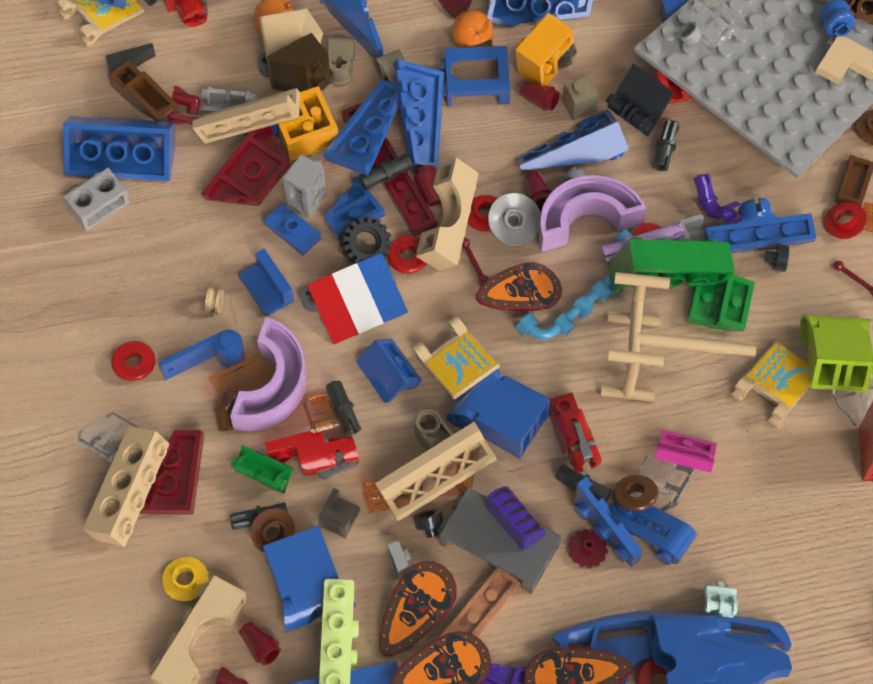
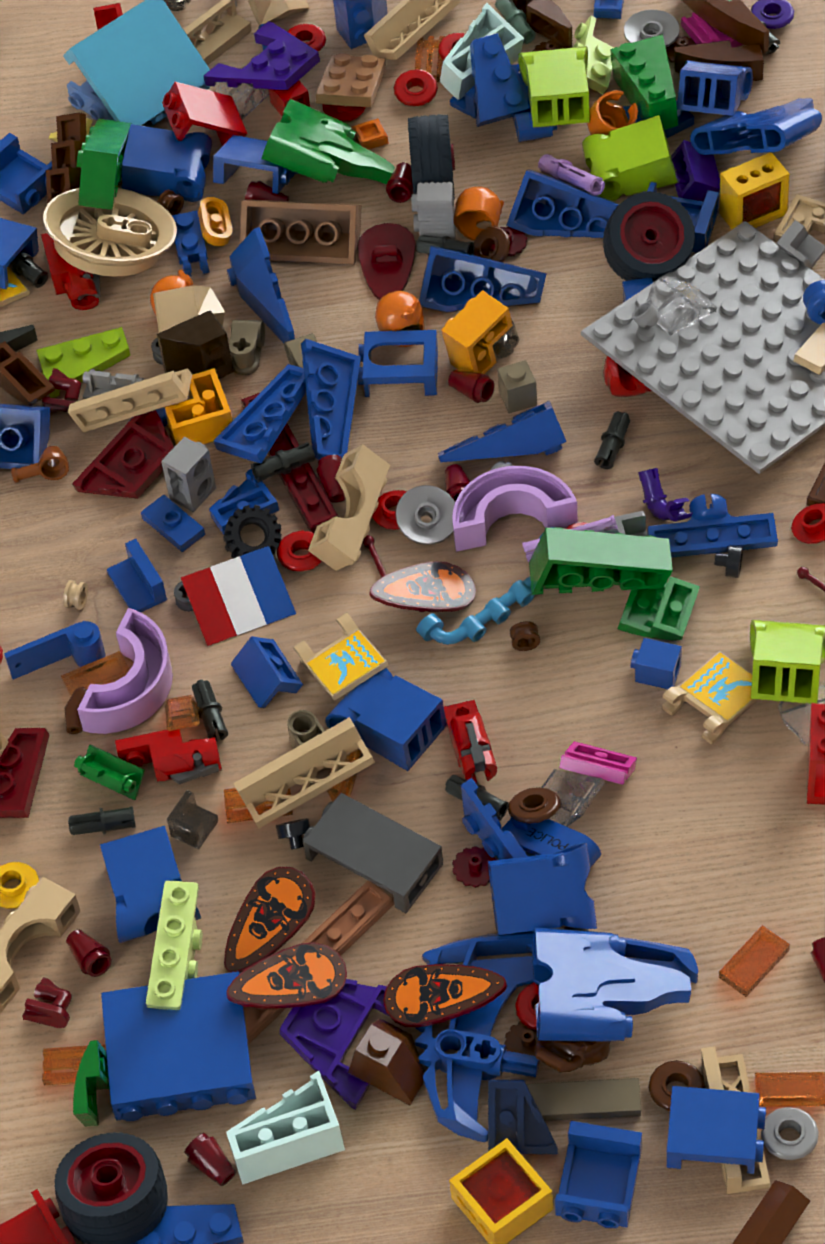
camera: 10 degrees right, 10 degrees down
(180, 177) = (51, 466): none -> dark orange bar
(198, 70) = (85, 353): none -> lime wing
(264, 521) = (105, 821): reddish brown piece -> none
(399, 558) = (254, 865): light grey plate -> none
(514, 517) = (387, 822): dark purple brick -> none
(609, 331) = (525, 636): none -> reddish brown bush
(635, 358) = (560, 633): tan piece -> none
(640, 100) = (585, 389): black hinge -> none
(652, 577) = (542, 891): none -> blue piece
(720, 600) = (618, 919): light aqua arm -> none
(725, 363) = (657, 663): none -> blue brick
(834, 630) = (754, 961): none -> clear orange tile

